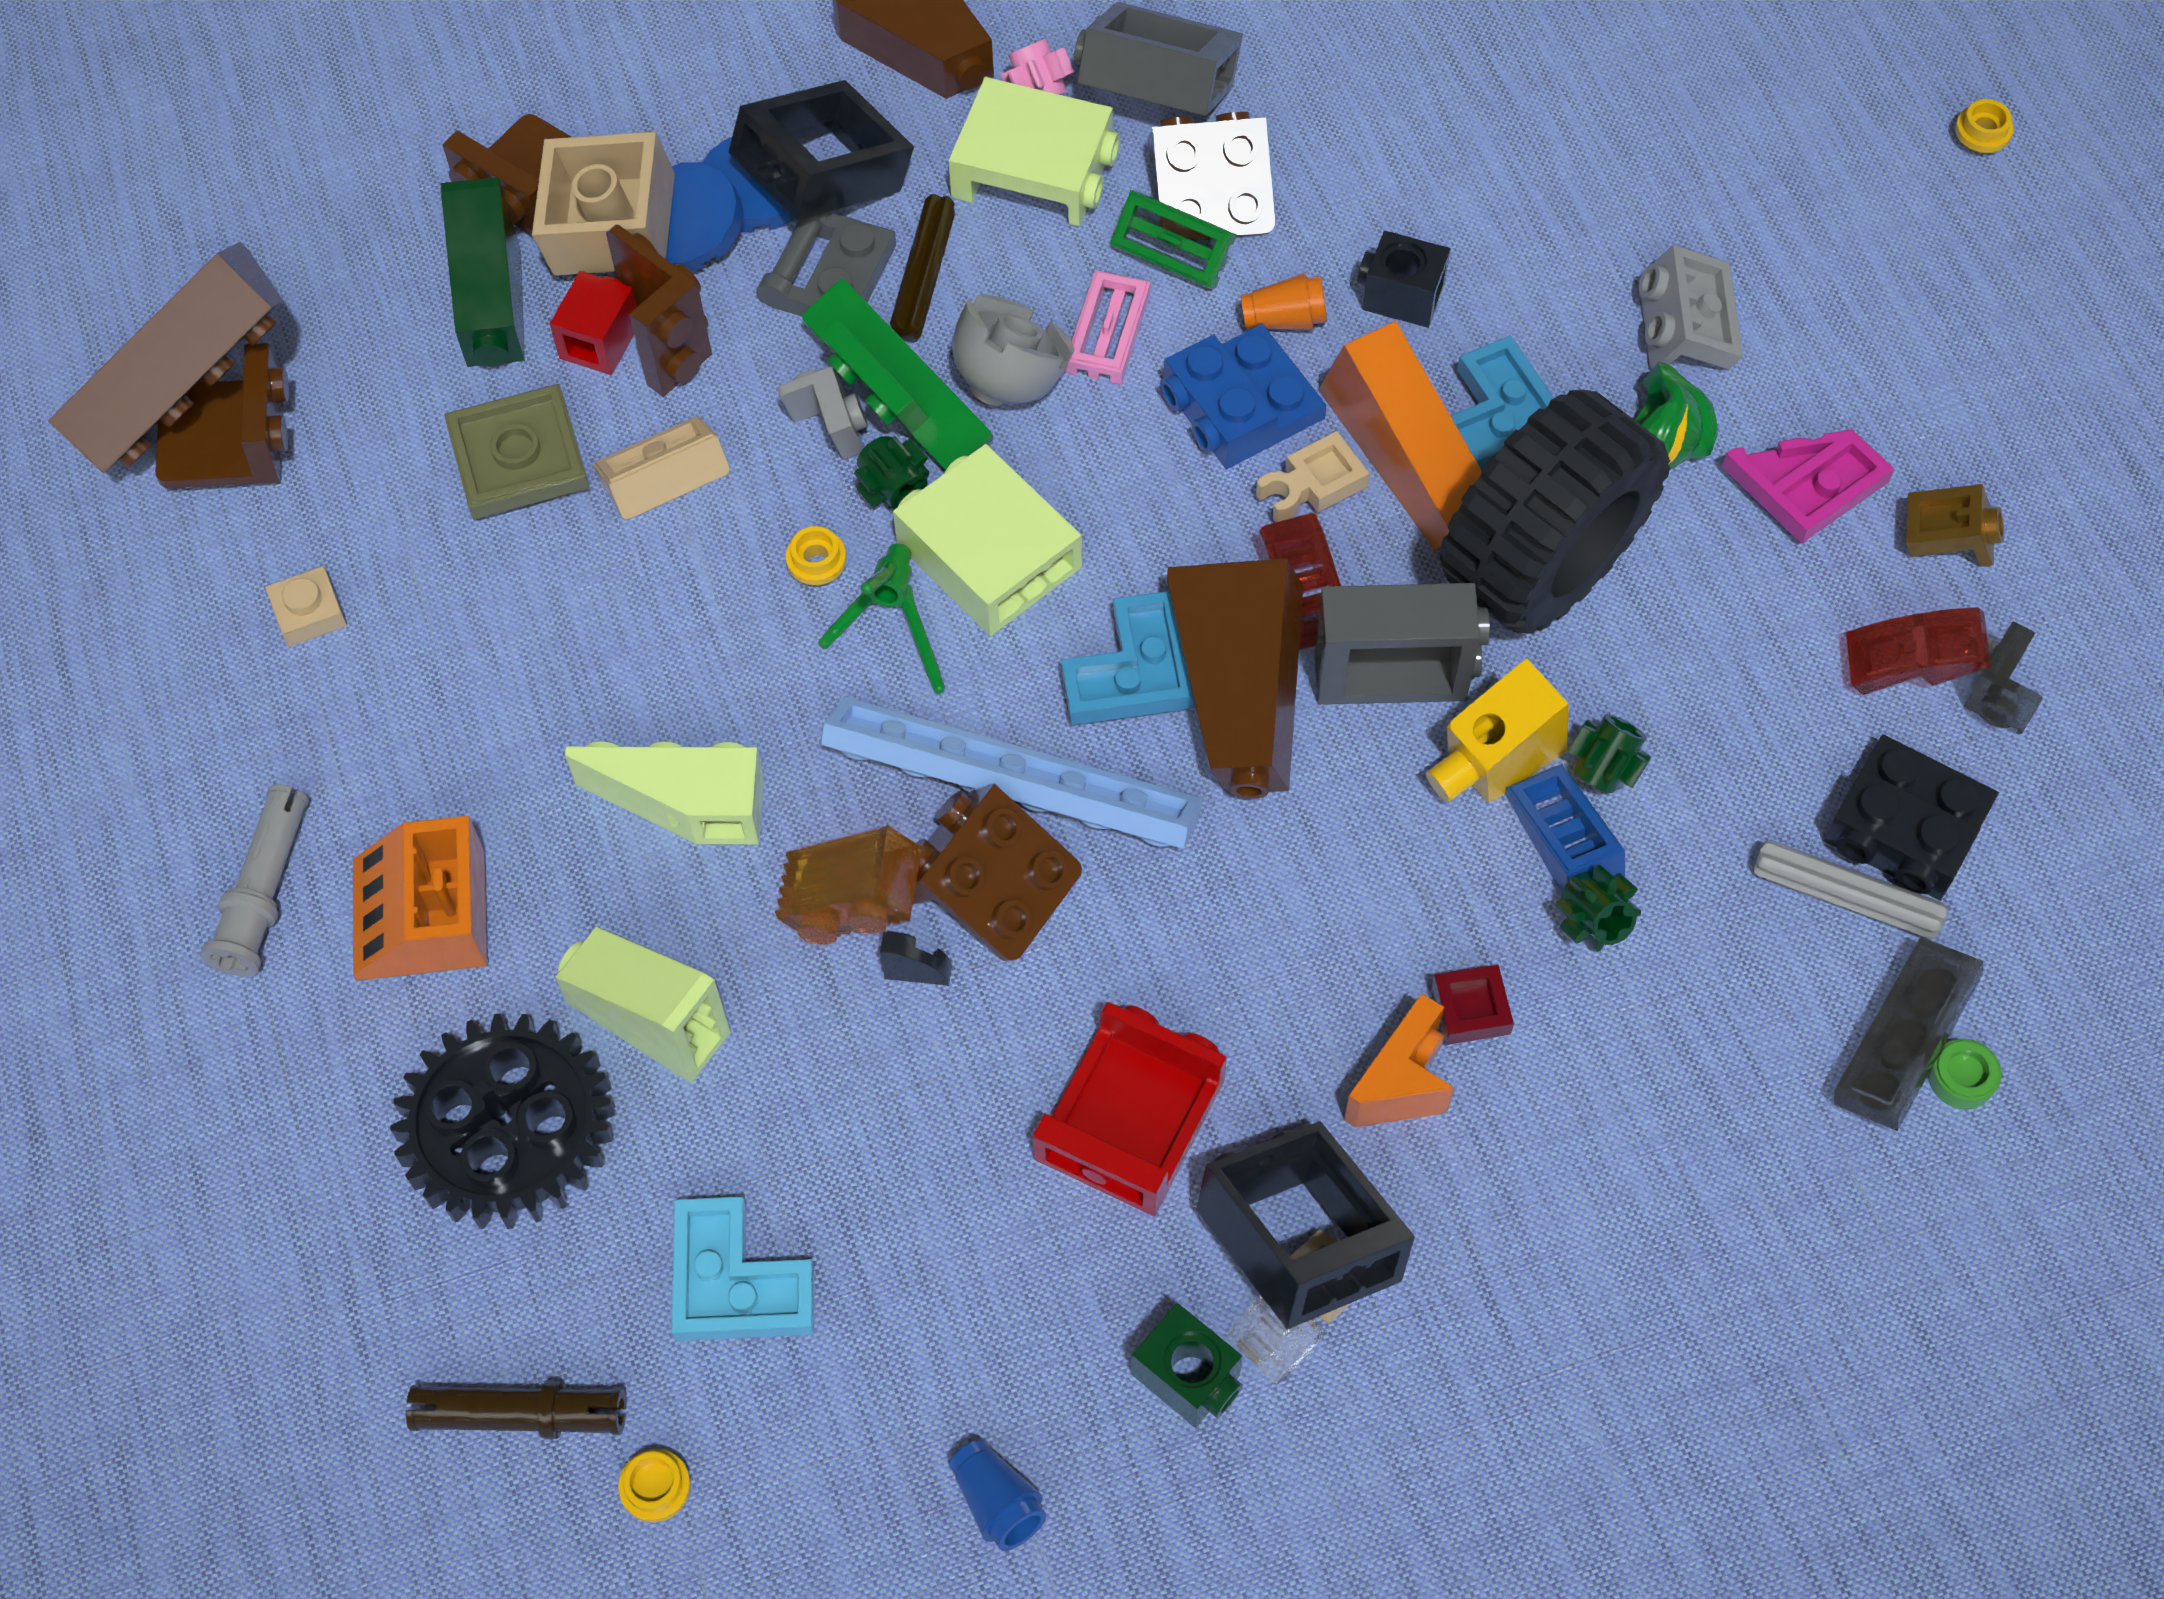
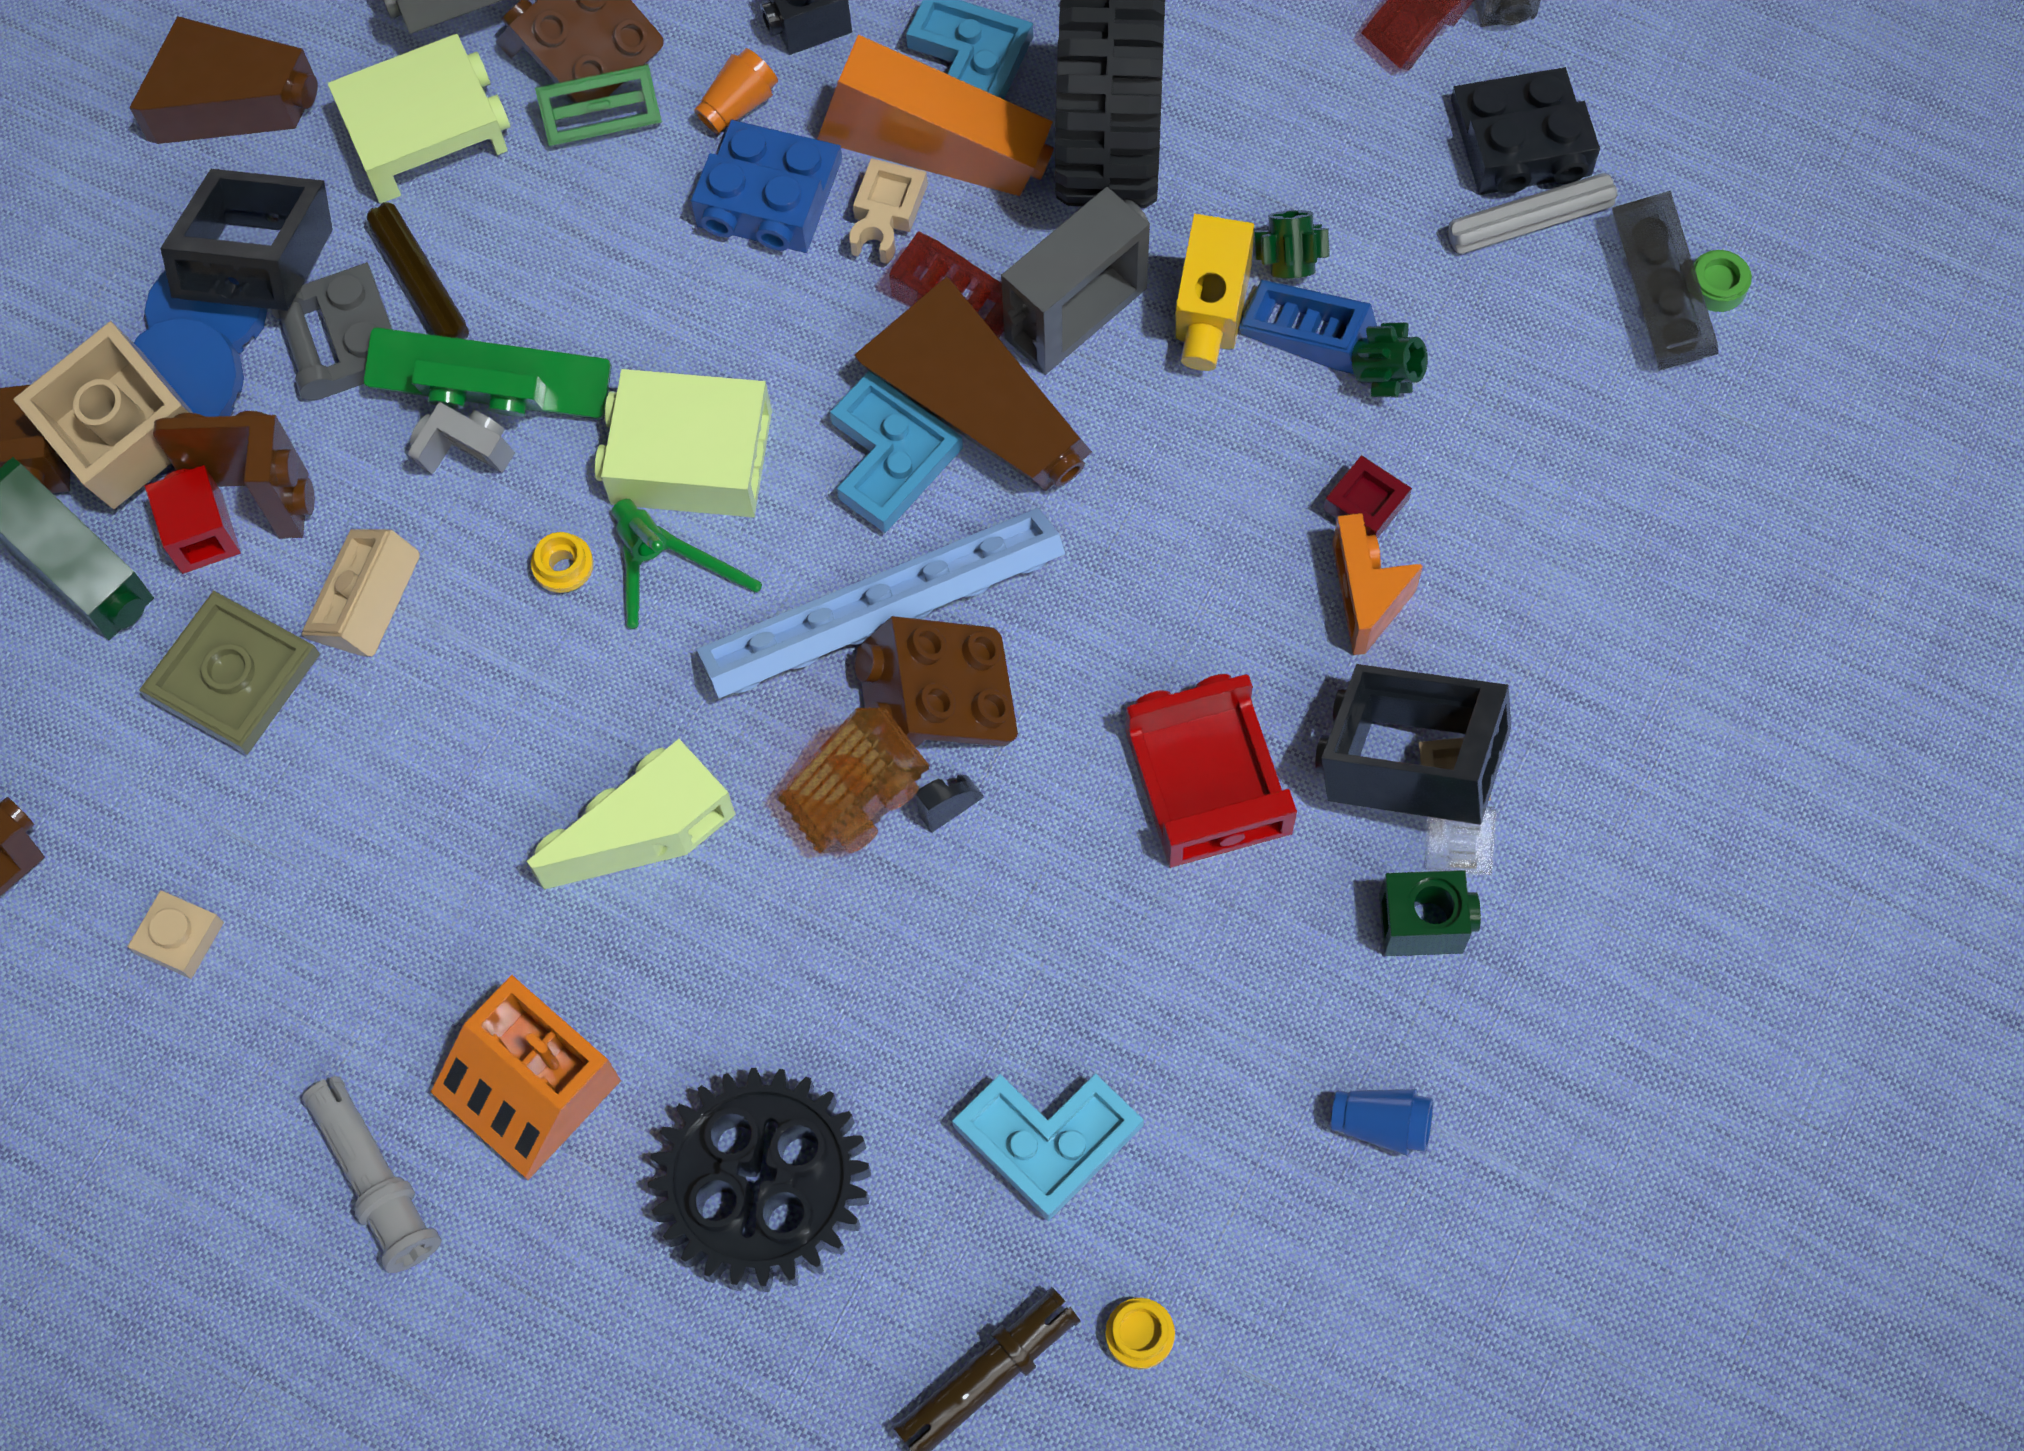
camera: 40 degrees left, 5 degrees up
(645, 1000) = (778, 997): yellowish green slope -> none
(890, 470) = (561, 450): dark green gear -> none
(1006, 353) = (564, 288): light grey cylinder -> none
(1039, 67) = (358, 45): bright pink gear -> none
(1098, 363) = (628, 246): bright pink tile -> none

